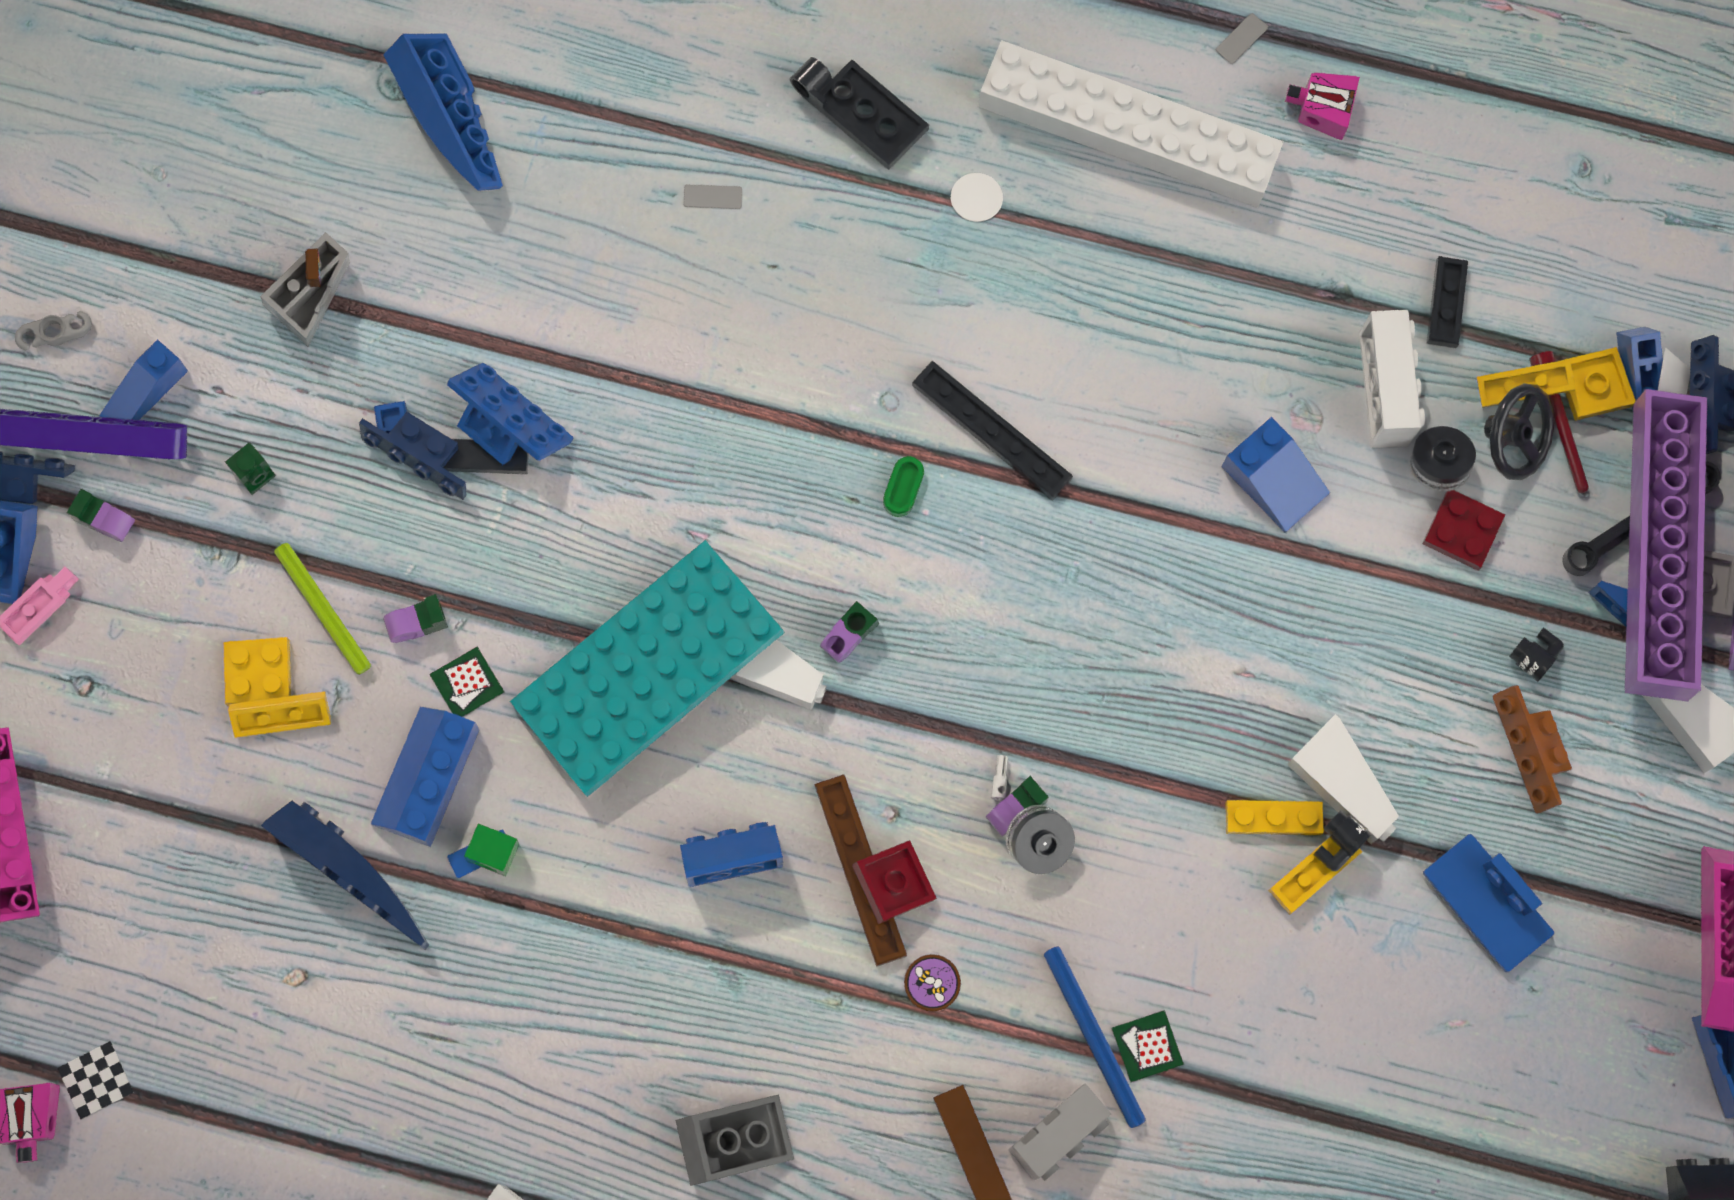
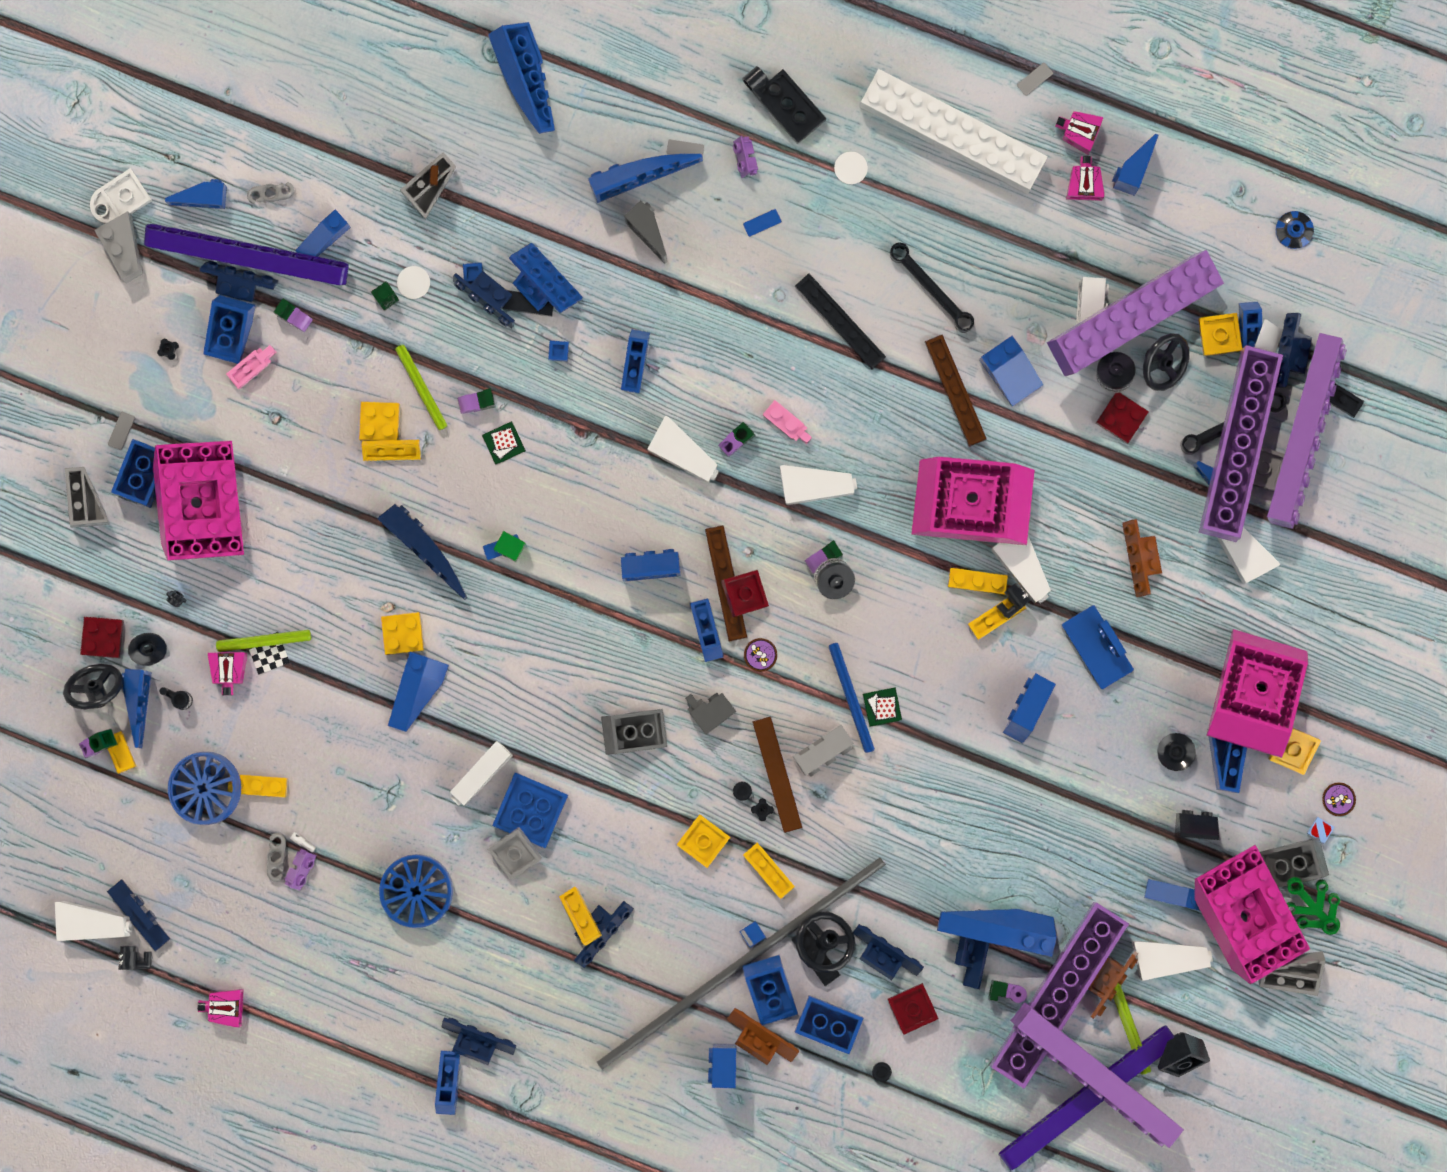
camera: 15 degrees right, 10 degrees up
(84, 1059) = (263, 640): none -> lime axle
(296, 445) = (413, 282): none -> white sticker
(323, 1019) = (402, 633): none -> yellow plate
(356, 1103) = (417, 686): none -> blue wedge
(426, 775) = (474, 496): blue slope -> none
(542, 525) = (558, 351): none -> blue plate
(642, 237) = (637, 173): none -> blue wedge
(646, 667) = (612, 447): teal plate -> none
(660, 312) = (643, 223): none -> dark grey slope
(668, 523) = (635, 360): none -> blue slope
(803, 184) = (742, 148): none -> medium lavender hinge
(838, 951) = (706, 630): none -> blue slope
(847, 293) = (762, 222): none -> blue sticker
(861, 1095) = (712, 714): none -> dark grey hinge
(903, 486) = (781, 351): green tile -> none
(927, 597) = (786, 422): none -> bright pink hinge
(985, 691) = (810, 485): none -> white slope
(1000, 780) = (816, 538): white pin -> none
(1130, 361) = (931, 287): none -> black piece
(1192, 517) = (955, 390): none -> reddish brown tile
(1209, 708) = (996, 516): none -> dark pink slope
(1346, 177) = (1085, 181): none -> dark pink torso
(1394, 1018) = (1028, 708): none -> blue wedge
(1419, 153) = (1130, 175): none -> blue slope
(1447, 302) = (1137, 267): black tile -> none
(1462, 359) = (1135, 313): none -> medium lavender brick
(1533, 657) = (1151, 503): black piece -> none
(1550, 377) = (1186, 328): yellow plate -> none
(1564, 428) = (1190, 320): dark red piece -> none
(1664, 1059) = (1186, 752): none -> black dish
(1672, 225) = (1288, 236): none -> dish

